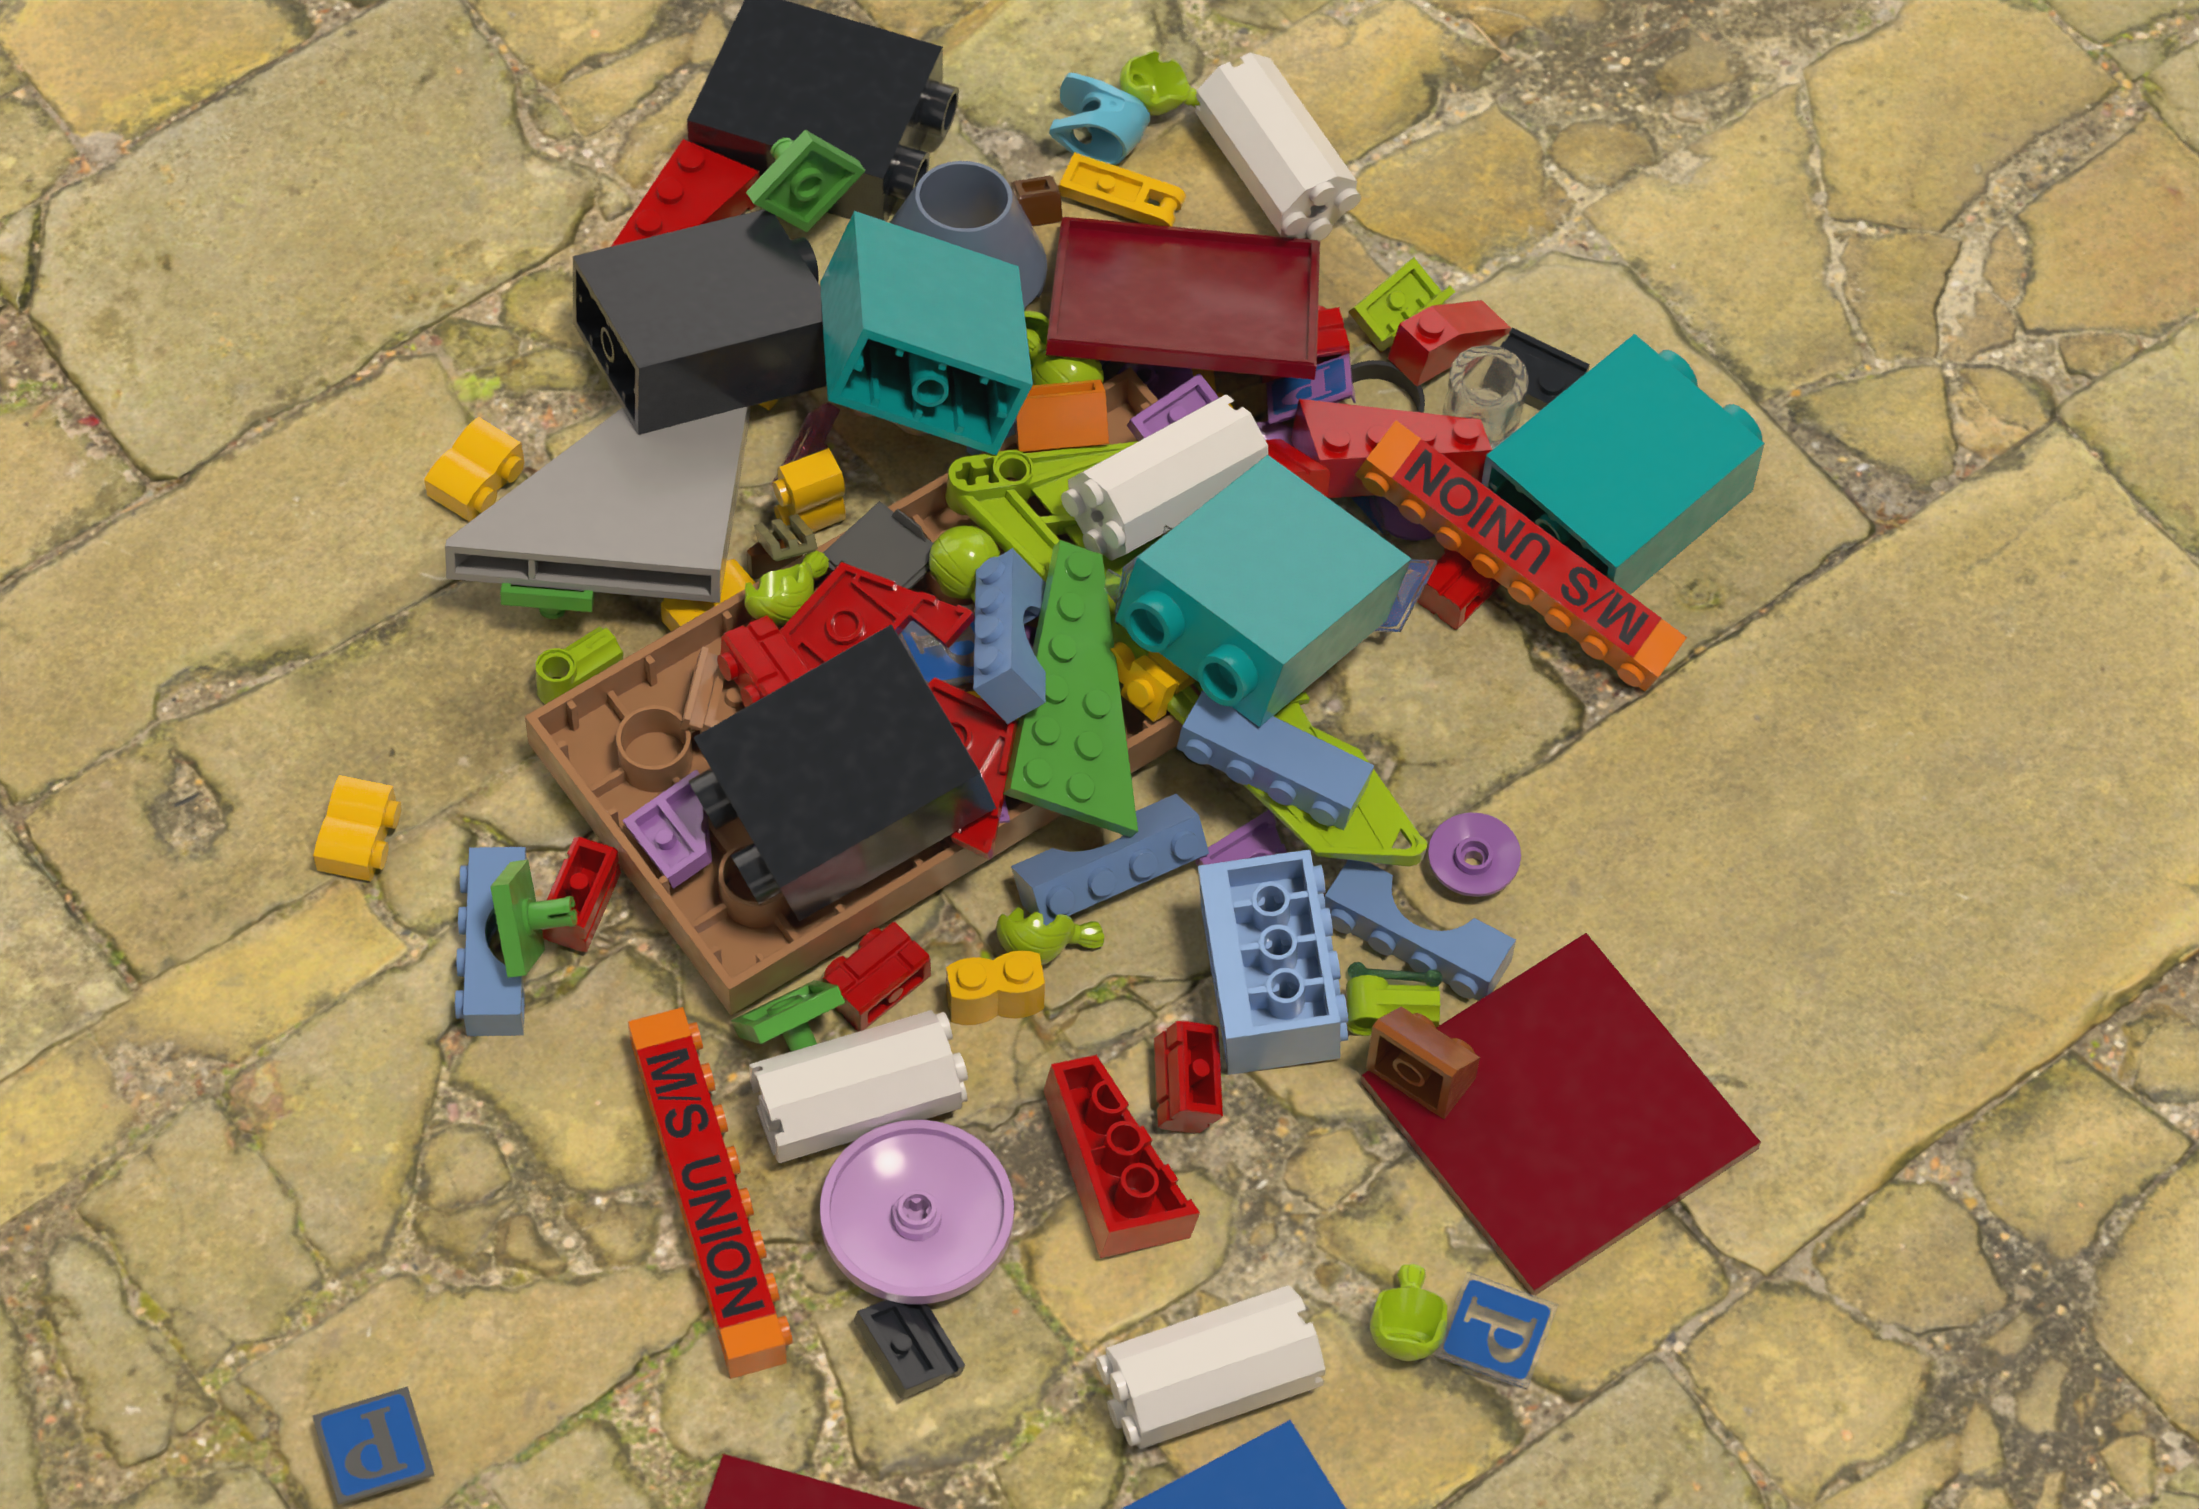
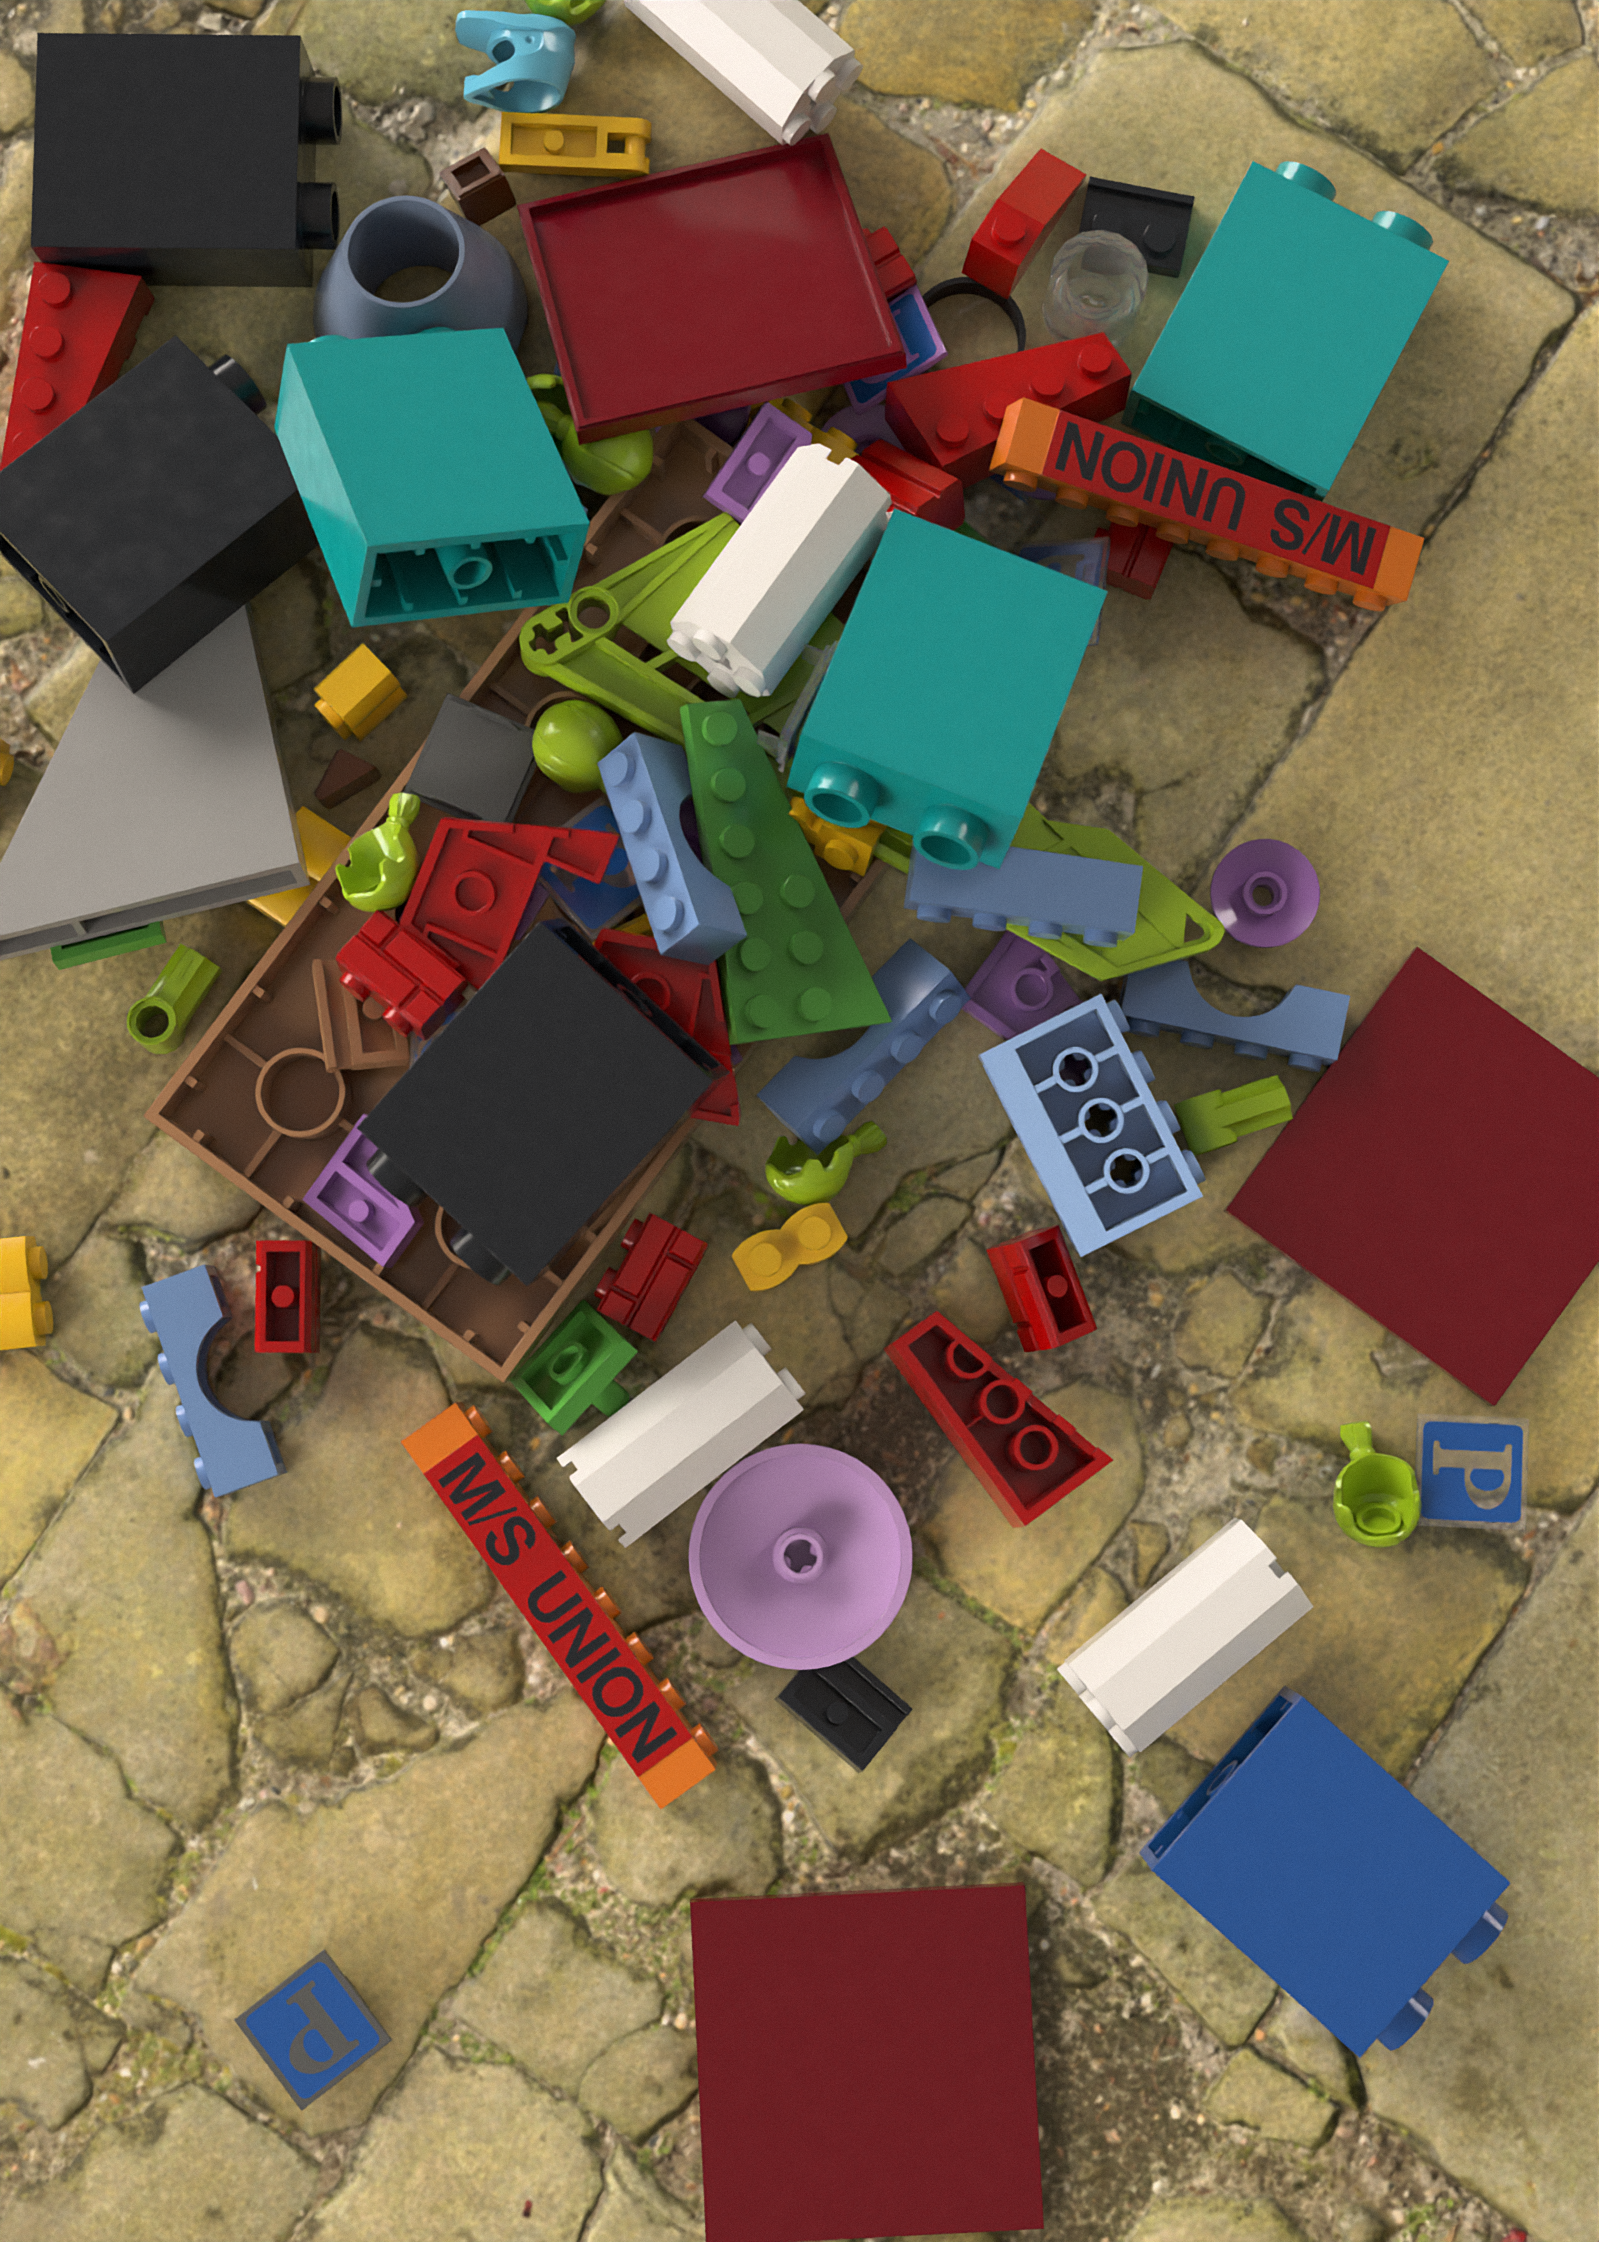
camera: 15 degrees left, 25 degrees up
(522, 918) = (237, 1371): bright green tile -> none
(789, 535) = (344, 762): olive tile -> none
(804, 179) = (203, 288): bright green tile -> none
(812, 433) = (329, 628): clear pink plate -> none
(1062, 417) = (629, 516): orange brick -> none
(1395, 300) = (953, 192): lime bracket -> none
(1421, 1060) = (1296, 1182): dark orange slope -> none
(1432, 977) = (1180, 1077): clear green hinge -> none

